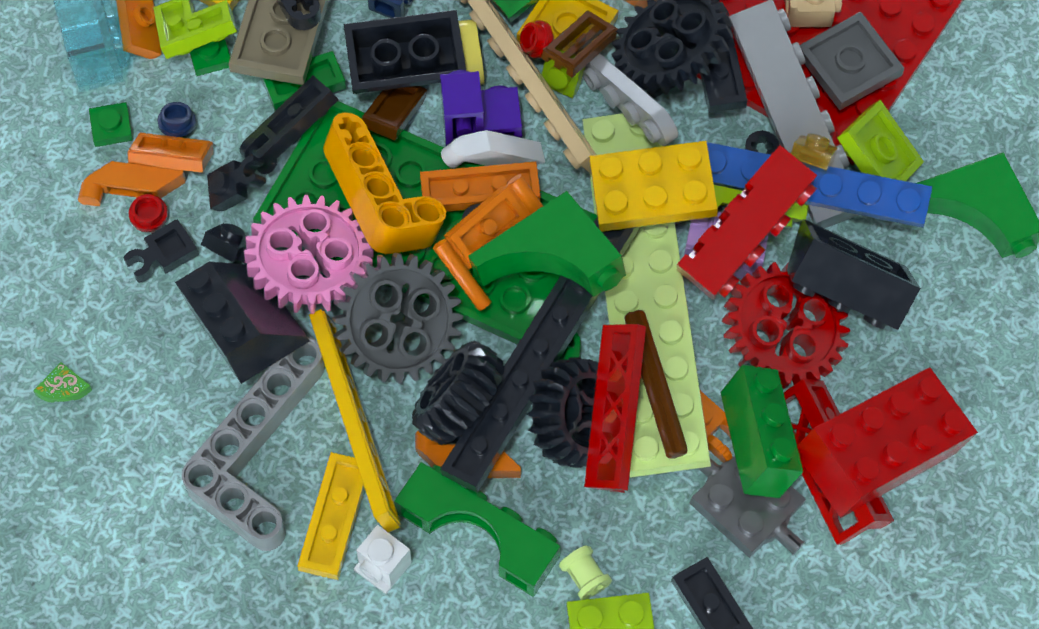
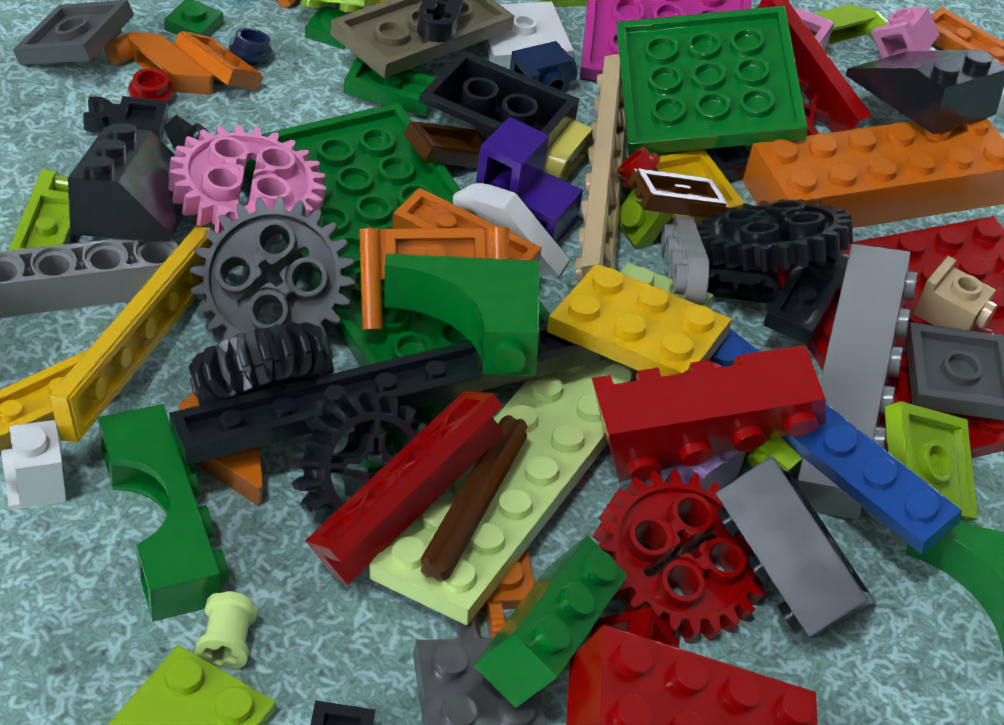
camera: 30 degrees right, 20 degrees down
(54, 208) = (74, 33): none -> dark grey plate
(199, 375) = (46, 214): none -> lime plate
(230, 182) = (241, 106): black plate -> none
(288, 123) = (338, 97): black plate -> none
(381, 212) = (348, 185): light orange beam -> none
(814, 150) = (848, 398): clear yellow plate -> none

